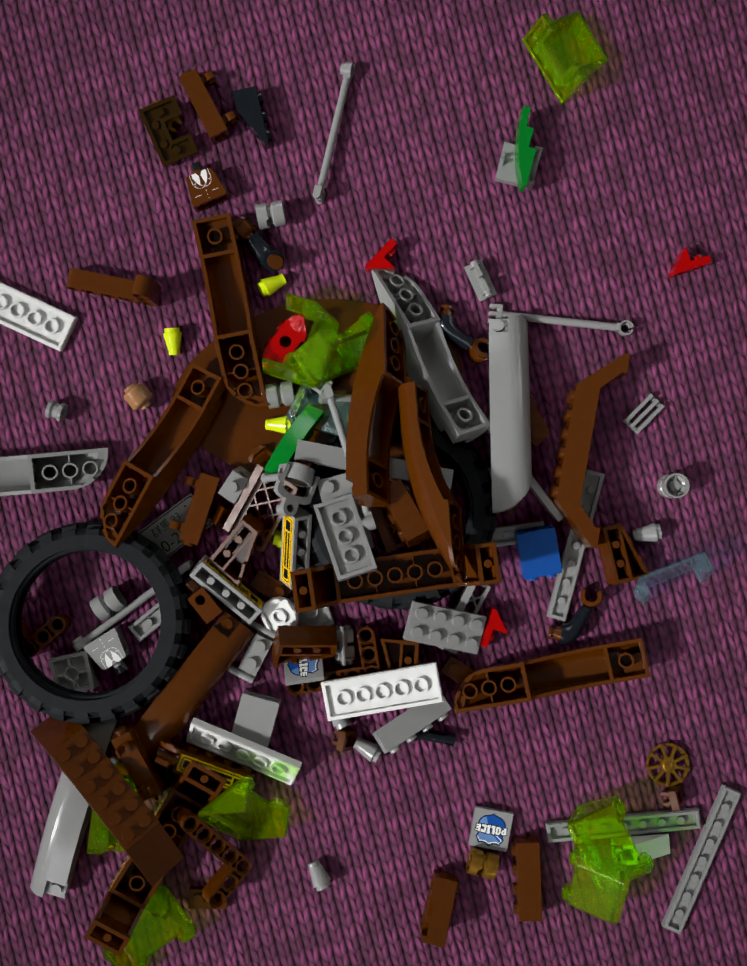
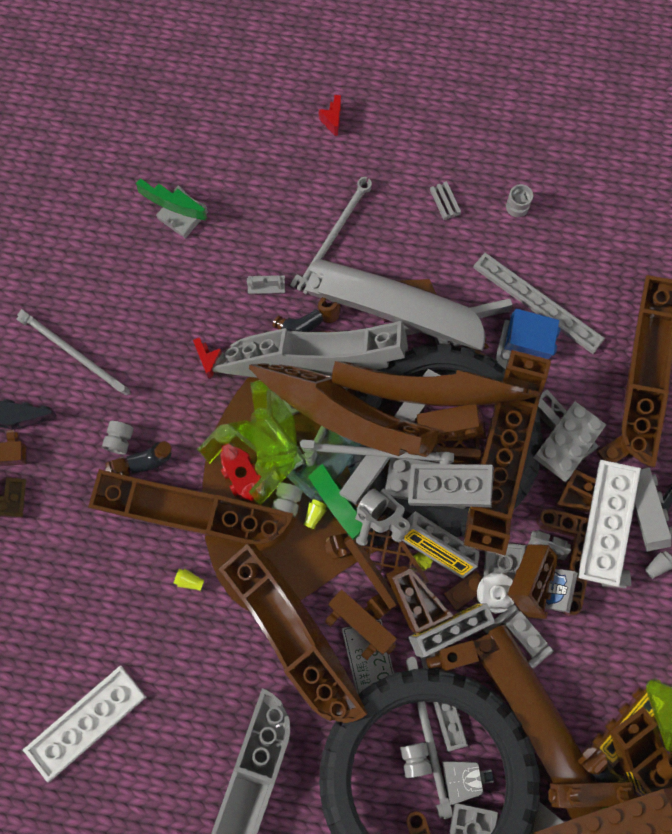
camera: 65 degrees left, 15 degrees down
(56, 410) = (201, 726): light grey wheel -> none
(138, 396) = (226, 637): medium nougat head -> none
(140, 290) = (111, 613): reddish brown beam -> none
(205, 188) = (62, 486): reddish brown torso -> none
(235, 484) = (355, 579): light grey torso -> none
(243, 751) = (618, 686): white tile -> none
(256, 717) = (591, 661): light grey brick -> none
(271, 284) = (181, 467): neon yellow cone -> none
(345, 739) = (643, 582): reddish brown tile -> none
(492, 622) = (582, 397): red slope -> none
(564, 52) = (107, 137): clear neon green windscreen -> none
(571, 630) = (615, 335): black piece -> none
(575, 449) = (455, 264): reddish brown slope -> none
(618, 555) = (562, 268): reddish brown wedge -> none
(648, 533) = (552, 238): light grey cone -> none
(699, 564) = (600, 206): clear light blue panel -> none

